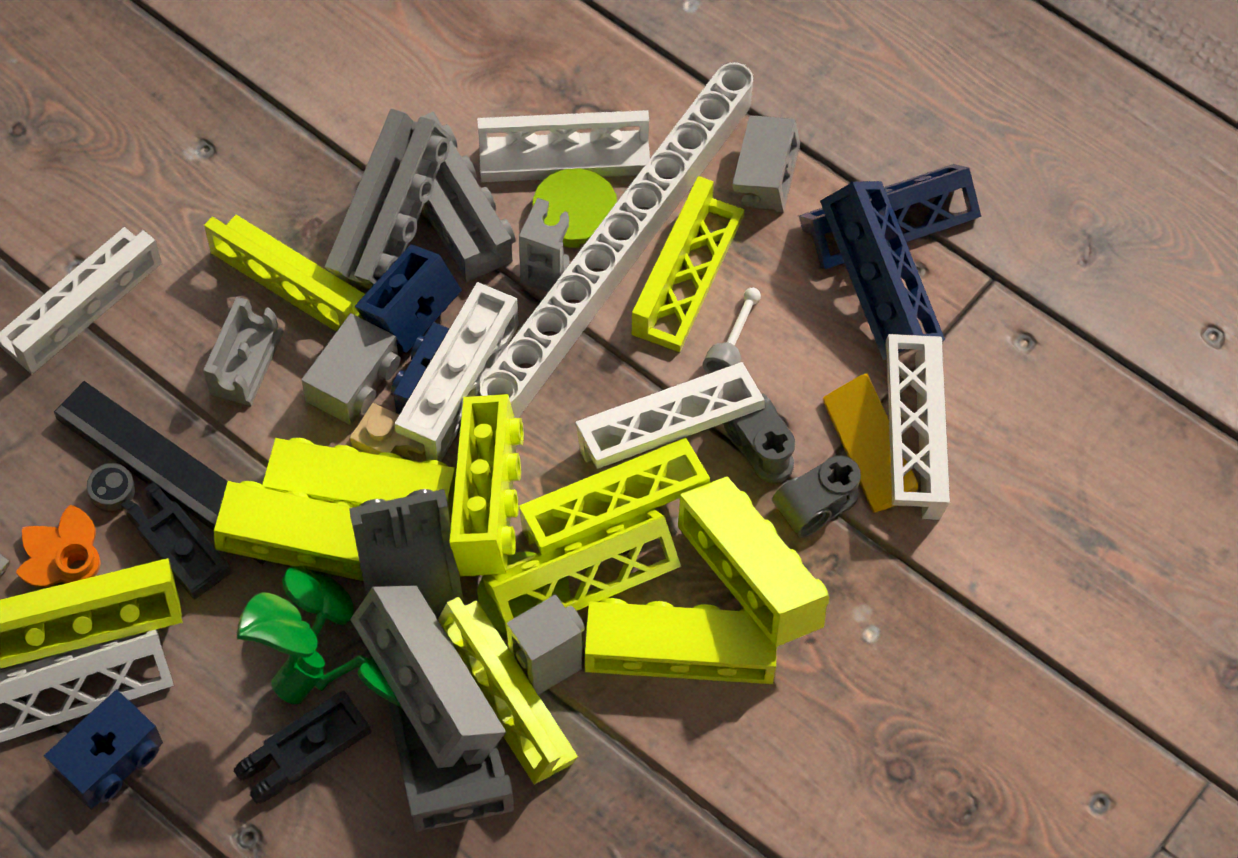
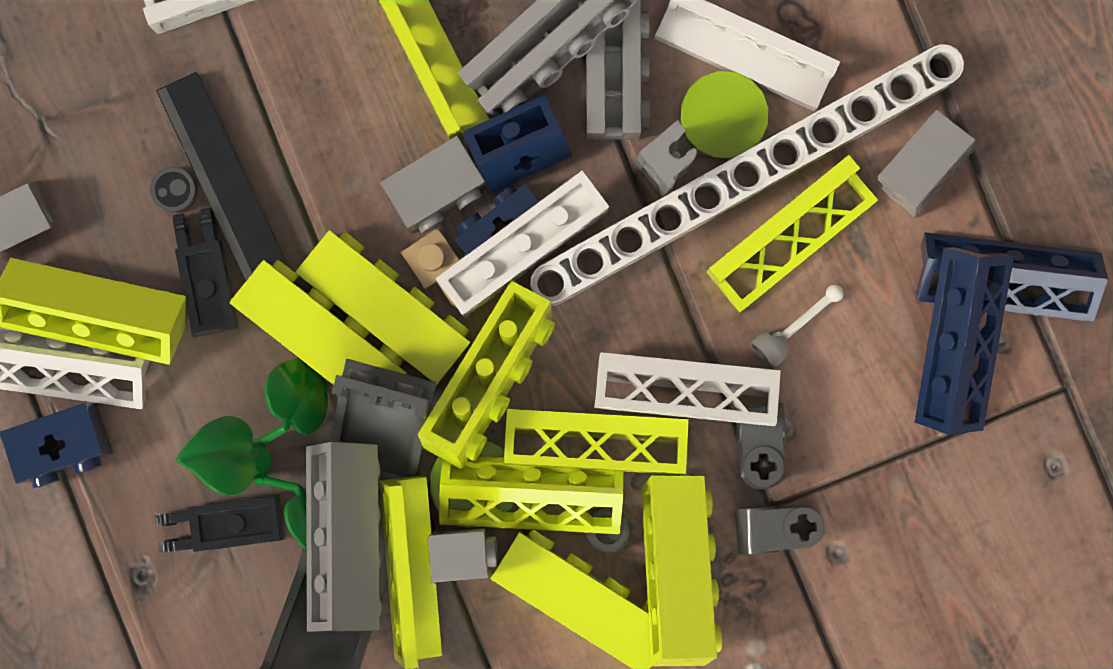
camera: 30 degrees right, 25 degrees up
(55, 549) = (101, 225): orange plate -> none
(242, 353) = (347, 117): light grey hinge -> none
(673, 584) = (609, 542): none -> dark grey tile
(866, 439) = (854, 498): yellow slope -> none
(928, 421) = (912, 517): white fence -> none

